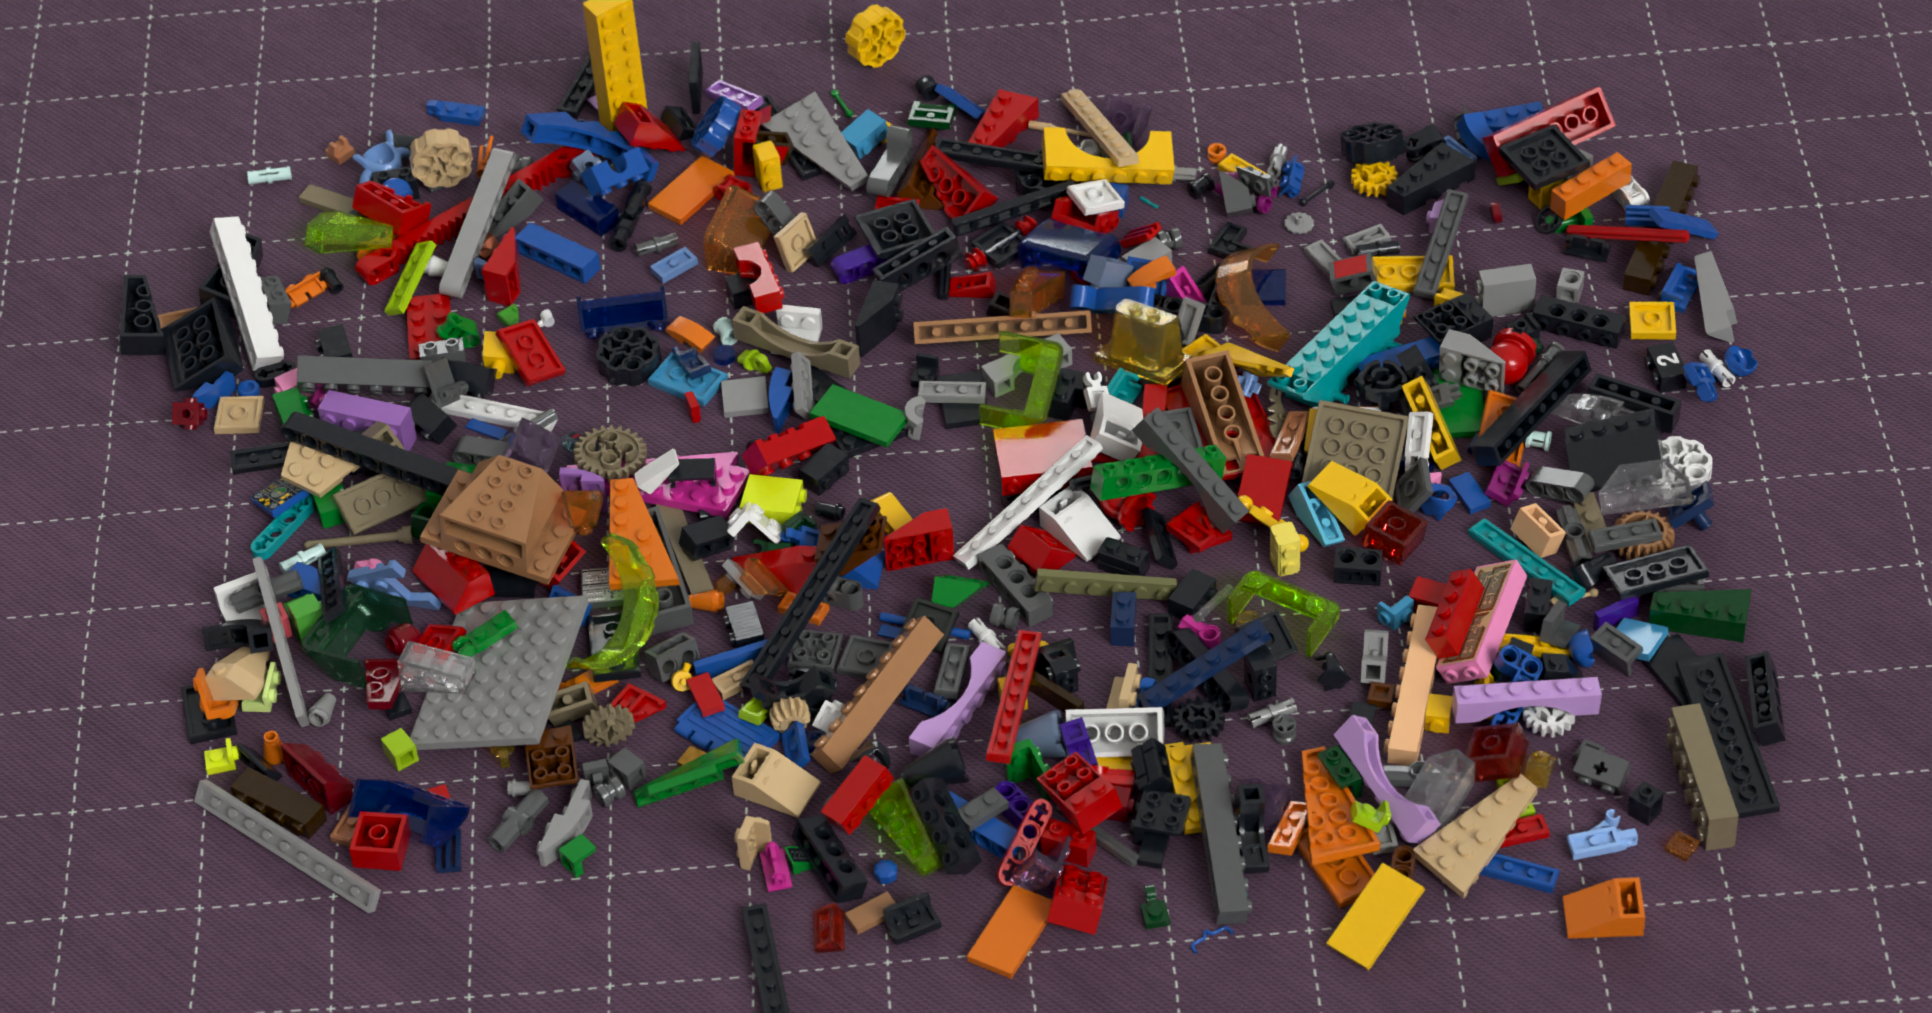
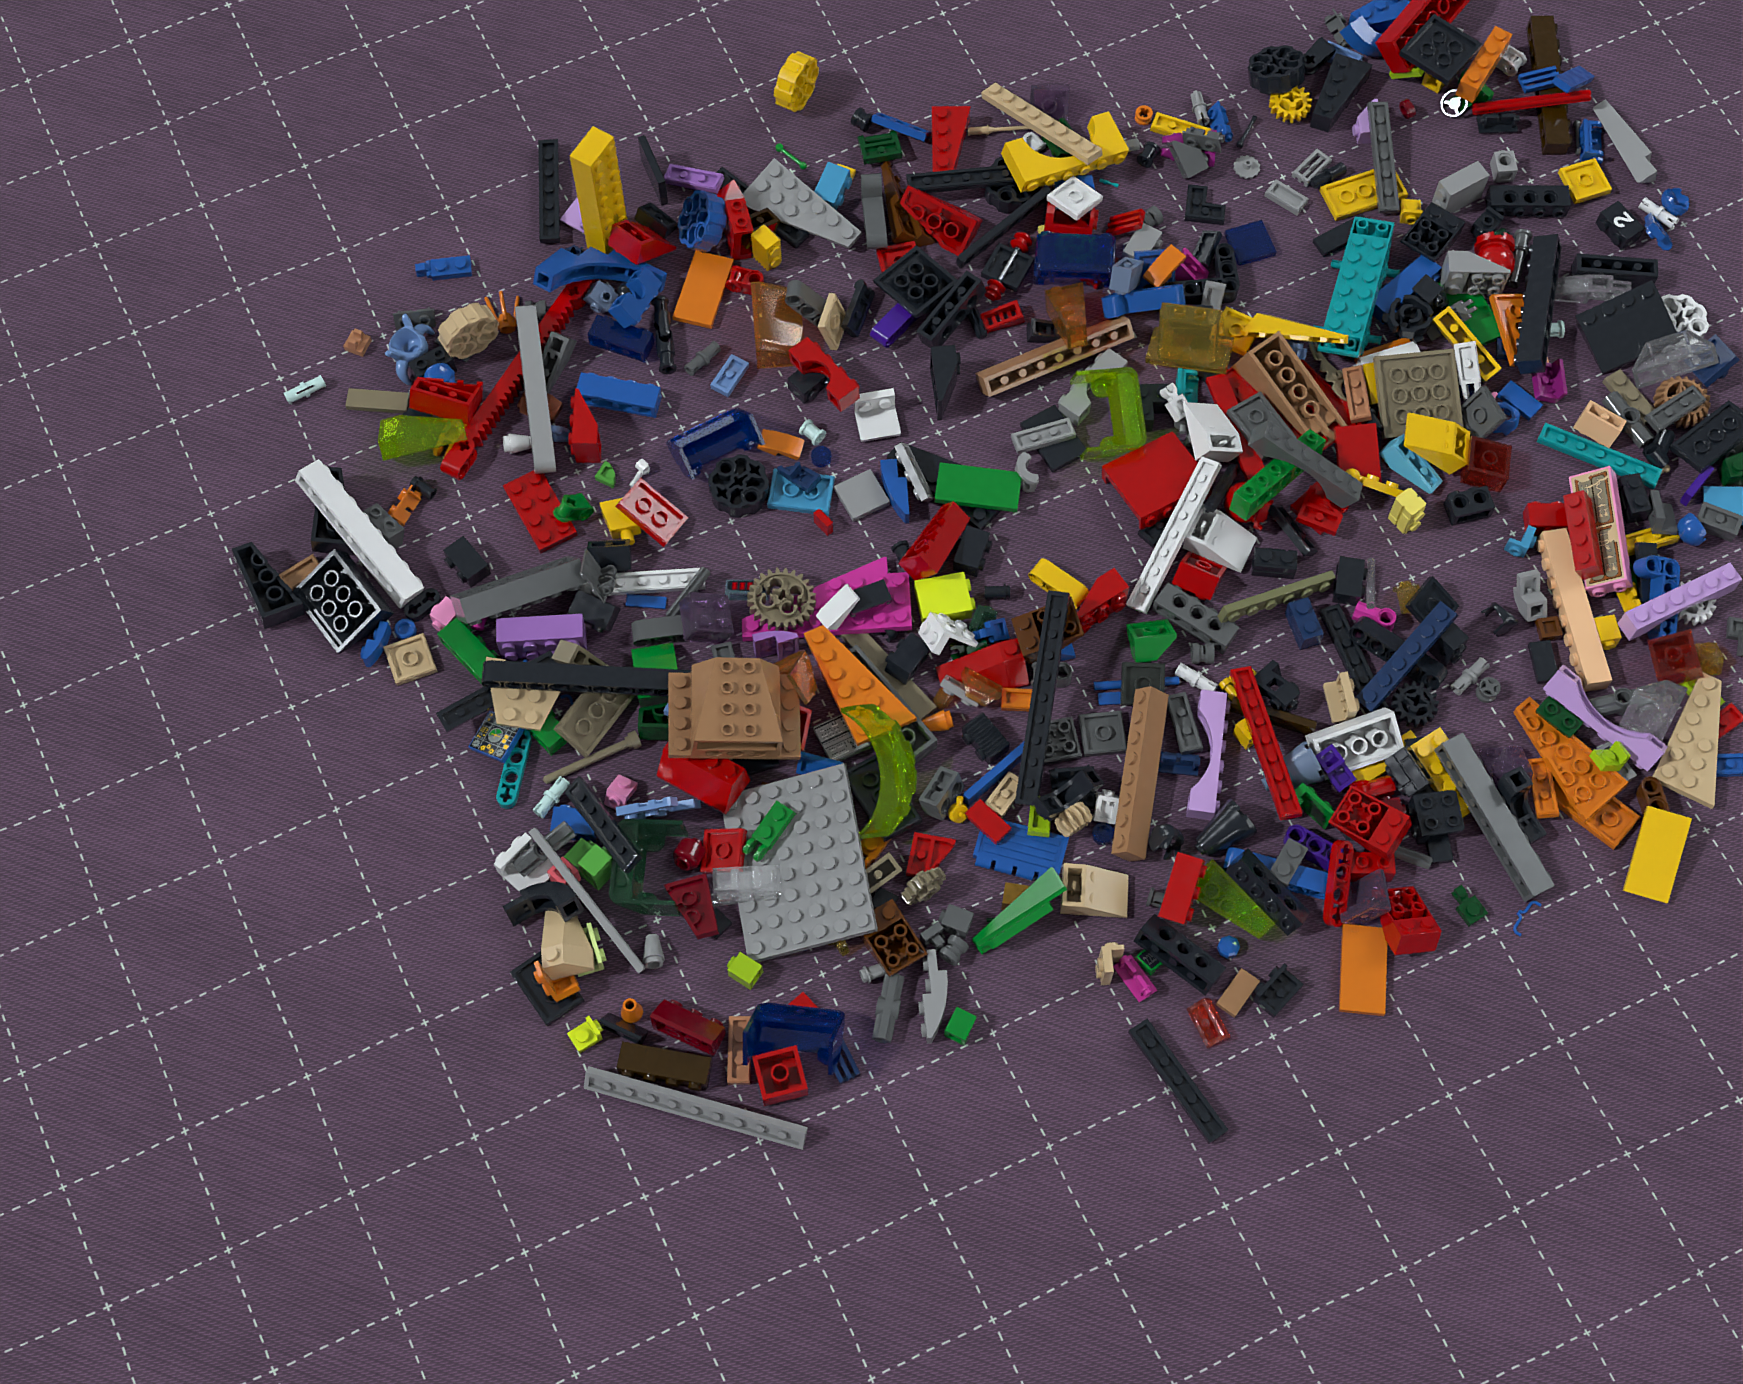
camera: 25 degrees left, 20 degrees up
(189, 413) = (366, 676): dark red brick -> none
(410, 278) = (498, 464): lime tile -> none
(451, 349) = (571, 539): dark grey brick -> none
(754, 361) = (852, 455): lime piece -> none
(758, 330) = (852, 427): dark tan arch -> none
(796, 744) = (1091, 847): blue plate -> none
(926, 369) = (1007, 419): black bracket -> none
(1145, 684) = (1359, 684): blue hand -> none
(1239, 295) = (1245, 260): clear orange windscreen -> none
(1282, 592) = (1405, 550): clear neon green windscreen -> none
(1352, 273) = (1323, 209): dark grey brick -> none
(1558, 667) = (1687, 560): black slope -> none
(1560, 484) = (1594, 371): dark grey beam -> none

